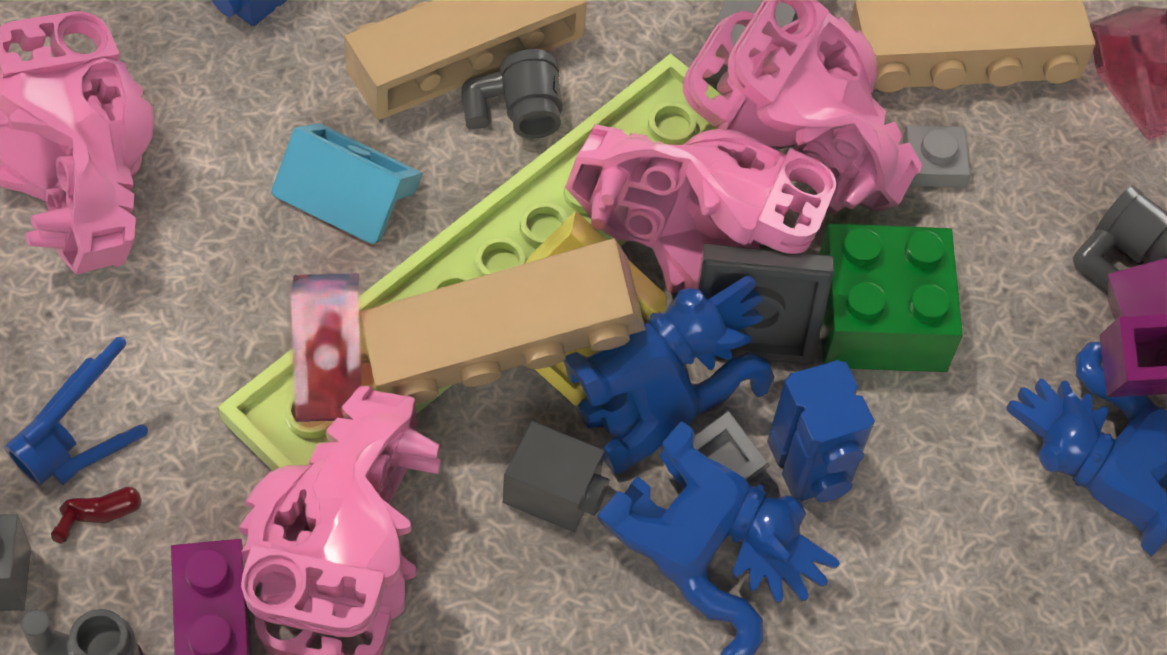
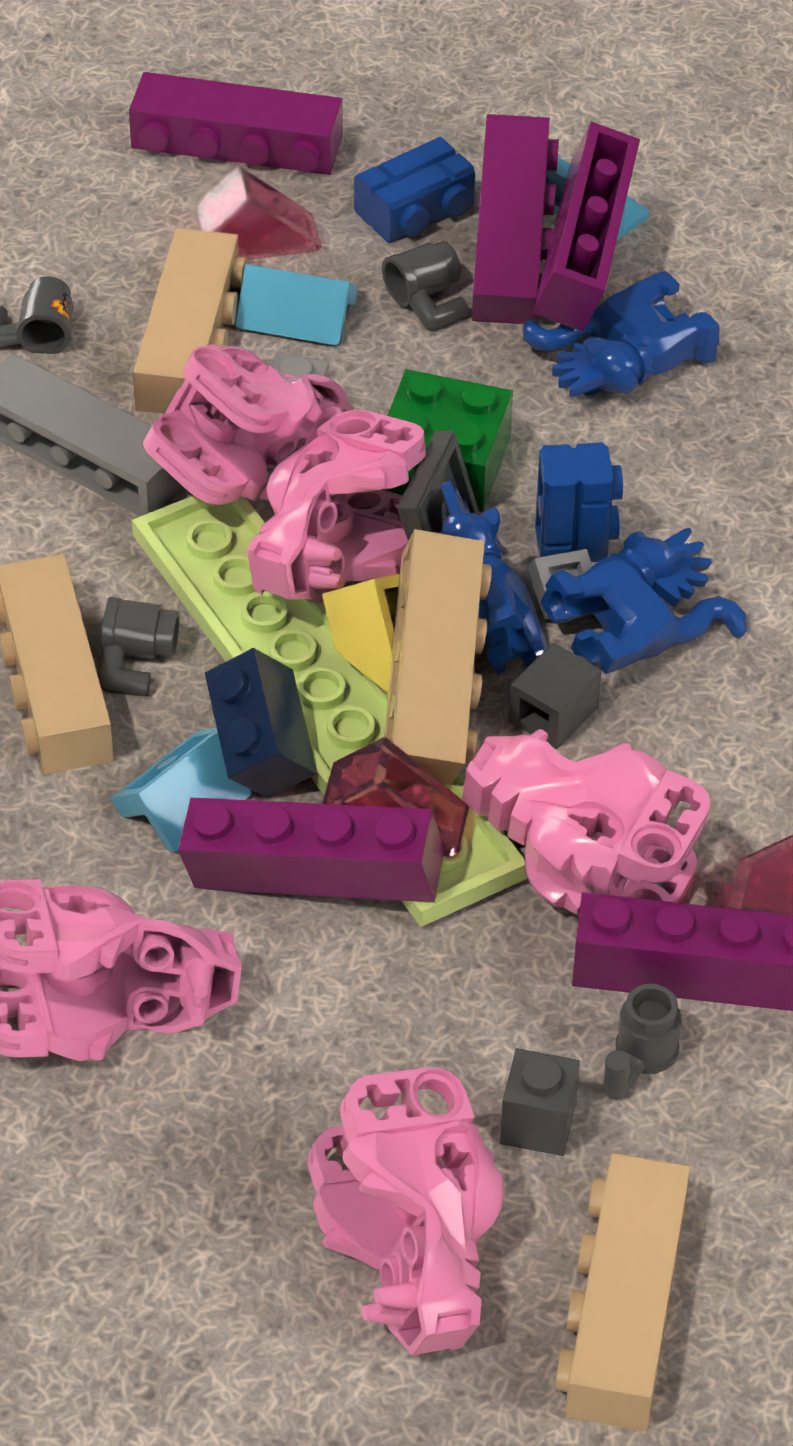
camera: 70 degrees left, 10 degrees down
(45, 443) = (417, 1044): blue plant -> none
(96, 510) = (491, 1028): dark red piece -> none
(253, 289) = (312, 849): none -> magenta brick
(411, 205) = (260, 723): none -> dark blue brick
(1047, 128) = (294, 304): none -> medium azure panel

